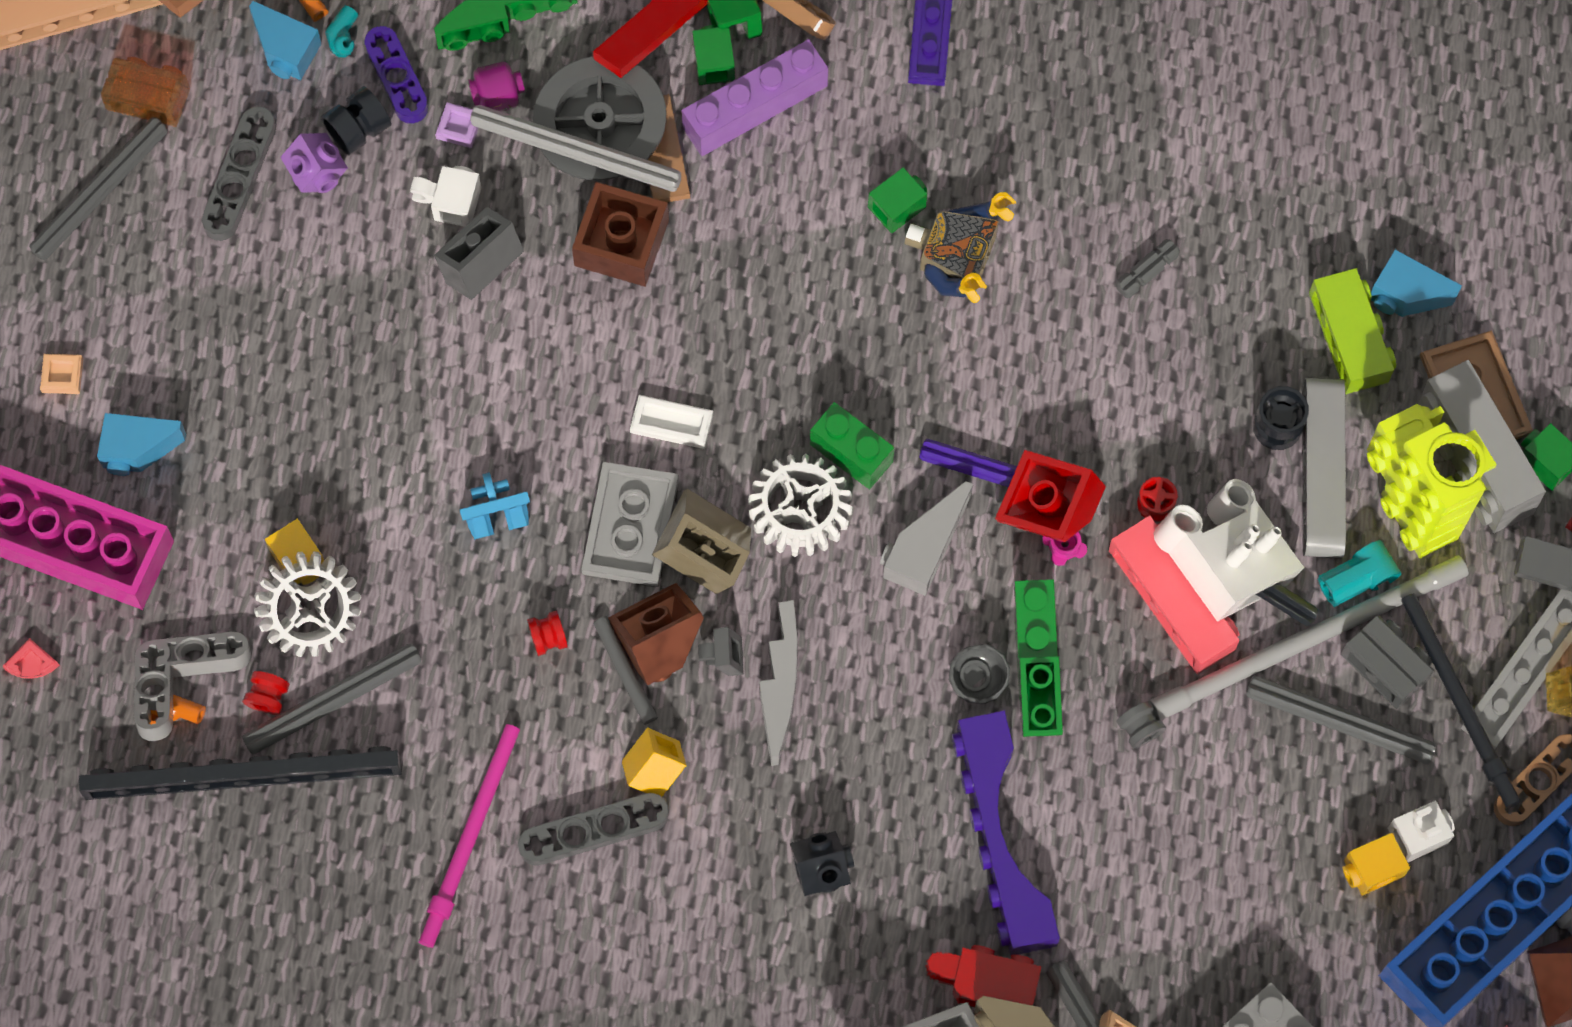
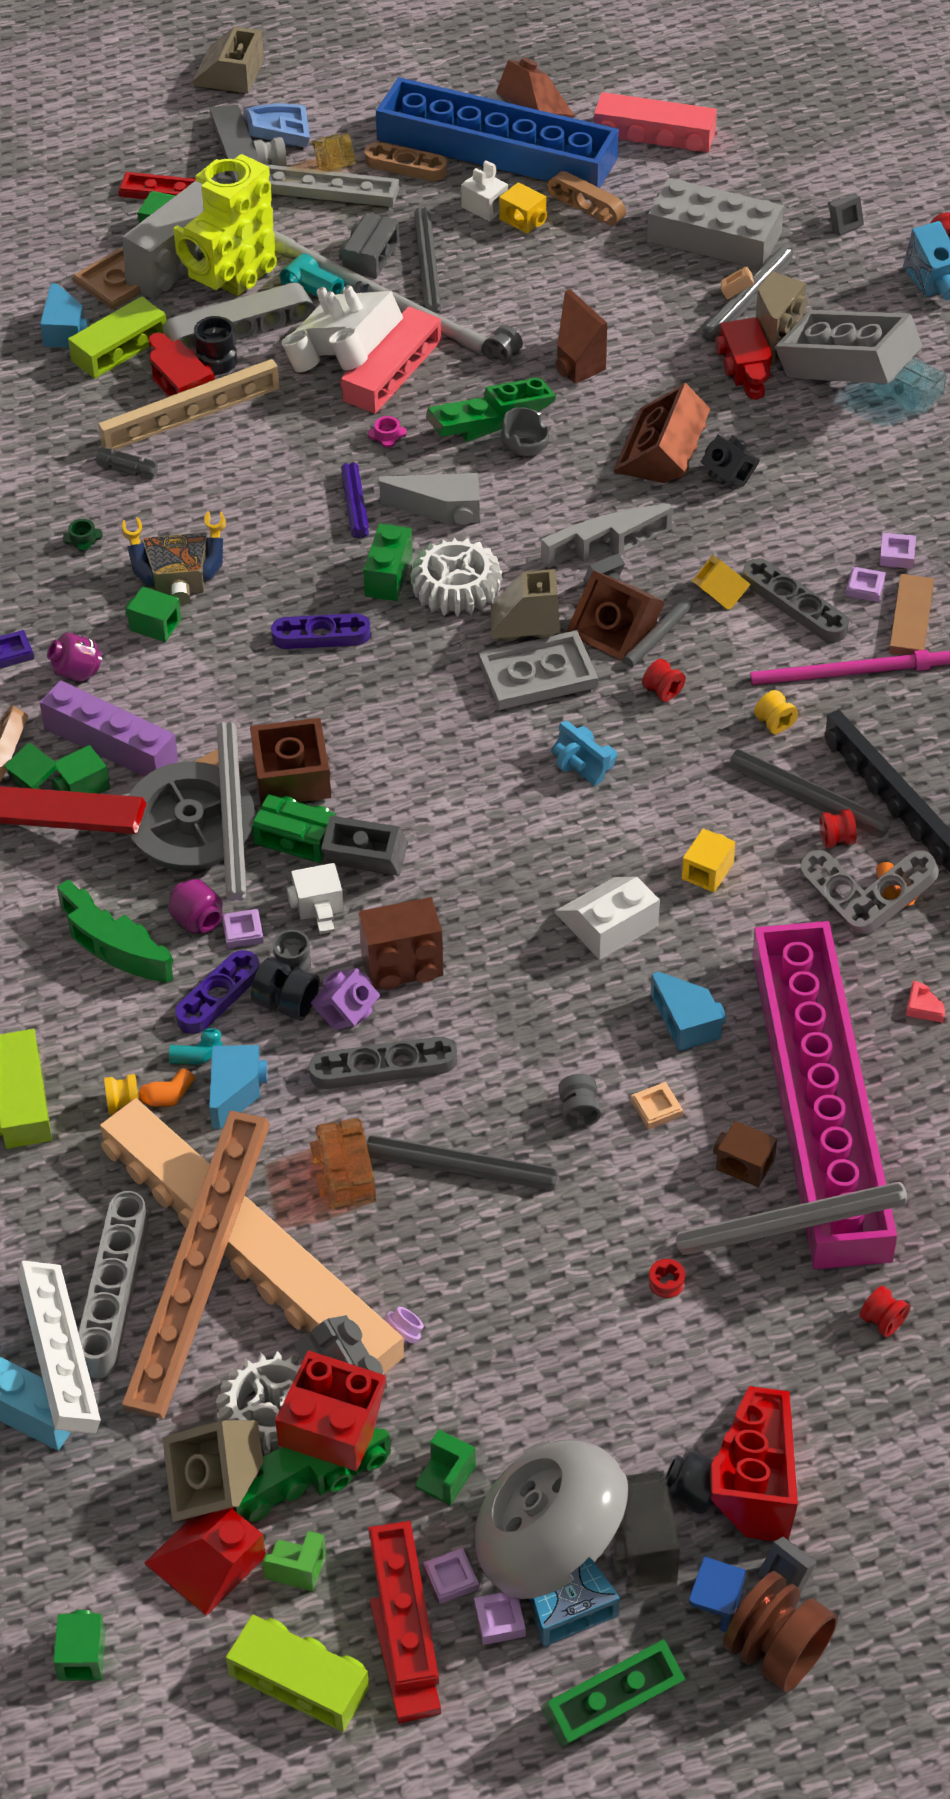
camera: 115 degrees left, 20 degrees down
(97, 306) = (579, 1096): none -> dark grey wheel
(289, 433) = (612, 914): none -> white slope
(294, 617) = (750, 819): white gear -> none
(337, 226) = (401, 943): none -> copper brick
(394, 136) = (292, 948): none -> dark grey wheel
(444, 717) = (775, 712): none -> yellow wheel
(509, 937) = (911, 614): none -> medium nougat tile
(546, 211) = (291, 827): none -> green brick
(579, 916) = (865, 584): none -> lavender tile
(603, 972) = (897, 550): none -> lavender plate
(671, 421) = (432, 684): white tile -> none
(798, 376) = (311, 623): none -> dark purple beam
(870, 103) = (74, 657): none -> magenta head
(900, 818) = (664, 436): none -> copper slope
(1025, 912) = (583, 410): dark purple arch -> none
(1050, 497) = (362, 434): red slope -> none
(1060, 175) = (82, 534): none -> dark green plate
(1093, 797) = (580, 340): none -> copper slope
(1159, 491) = (320, 393): red wheel -> none
(1203, 373) = (189, 405): none -> tan plate
(1260, 365) = (176, 366): none -> red hinge
(1370, 945) = (603, 204): none -> medium nougat beam
(1494, 766) = (415, 170): black bar -> none

